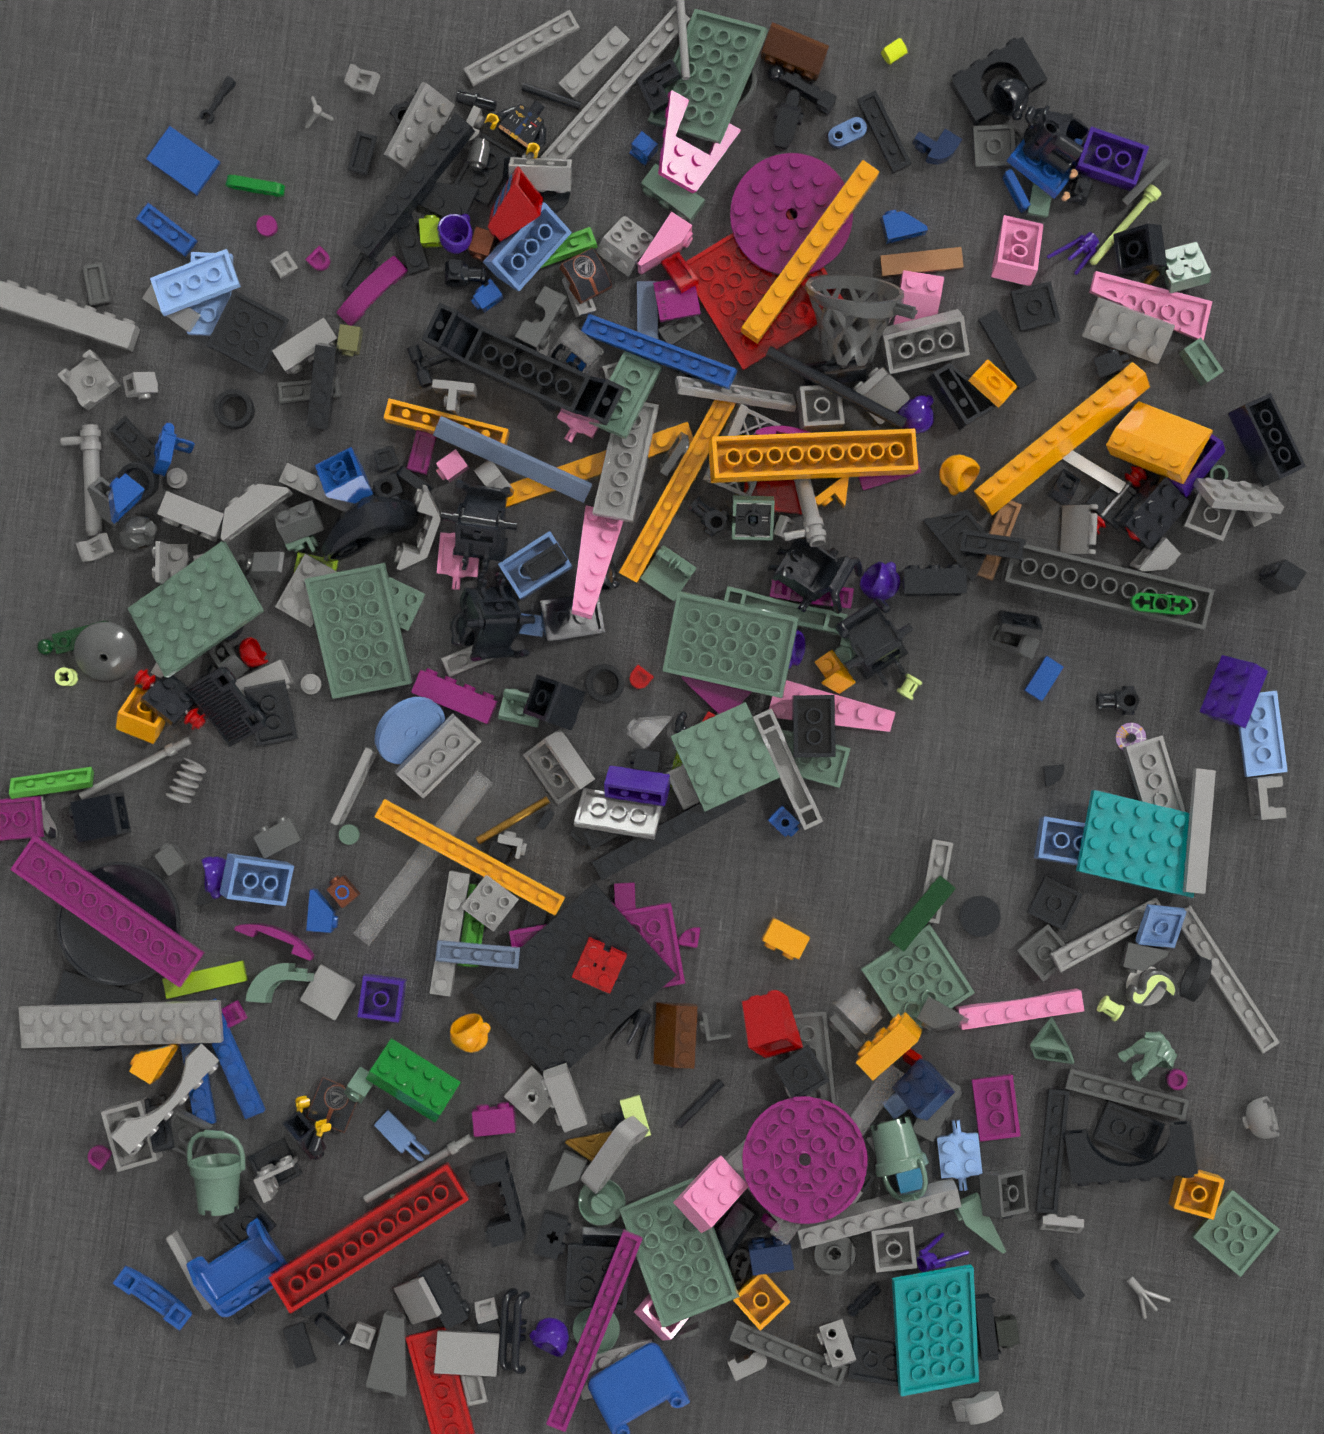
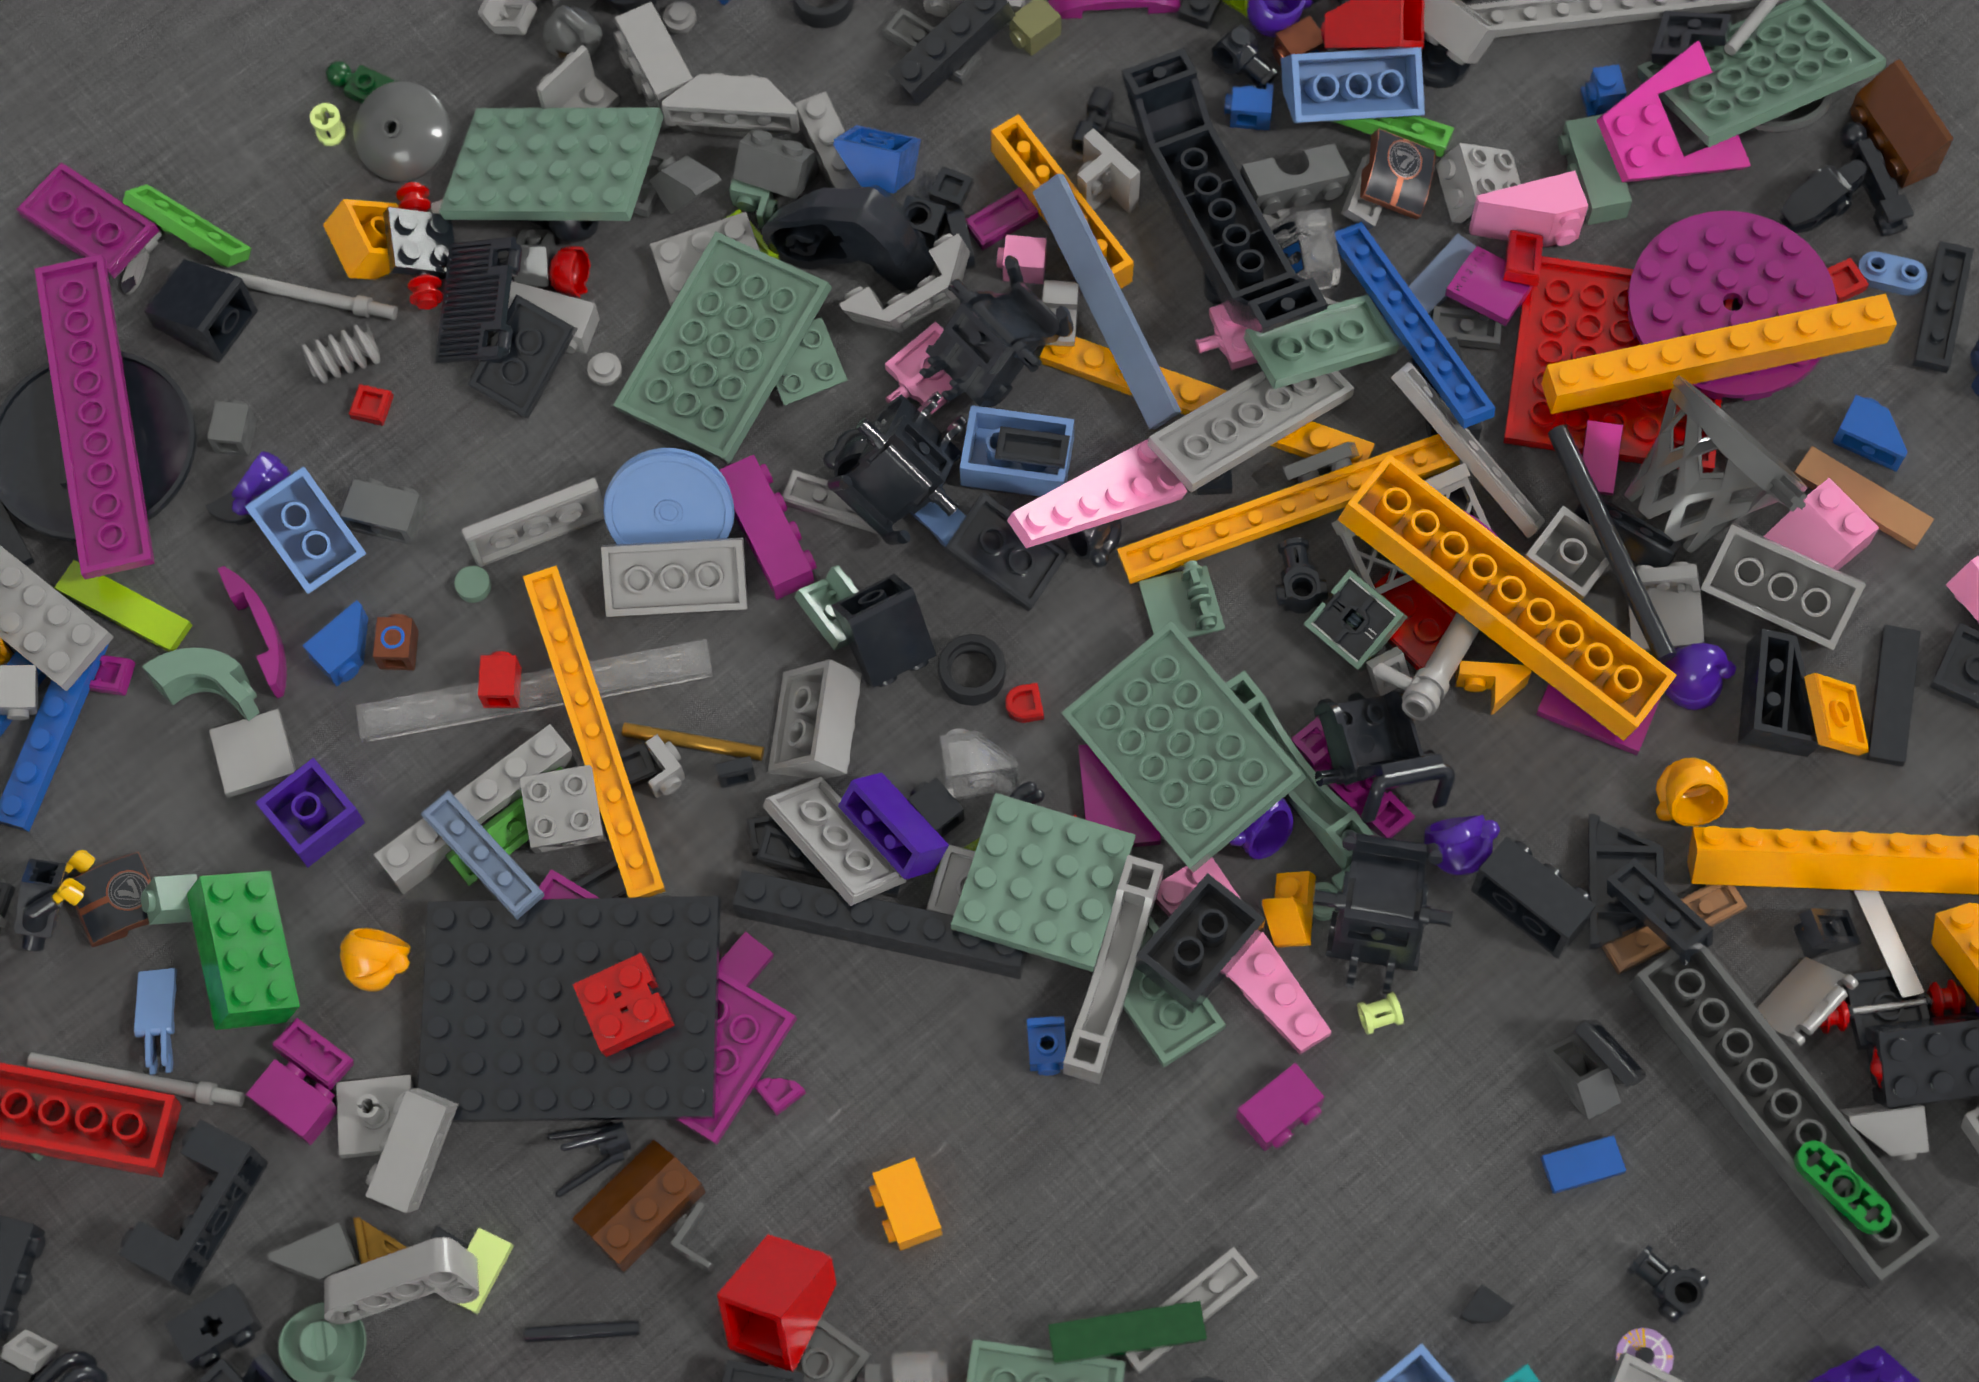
camera: 45 degrees right, 20 degrees down
(221, 792) = (371, 405): none -> red tile
(408, 870) = (499, 680): none -> red brick
(482, 1094) = (313, 1054): none -> magenta plate
(794, 343) = (1602, 453): none -> dark pink tile
(830, 155) = (1847, 280): none -> red plate
(902, 764) = (1281, 1108): none -> magenta brick

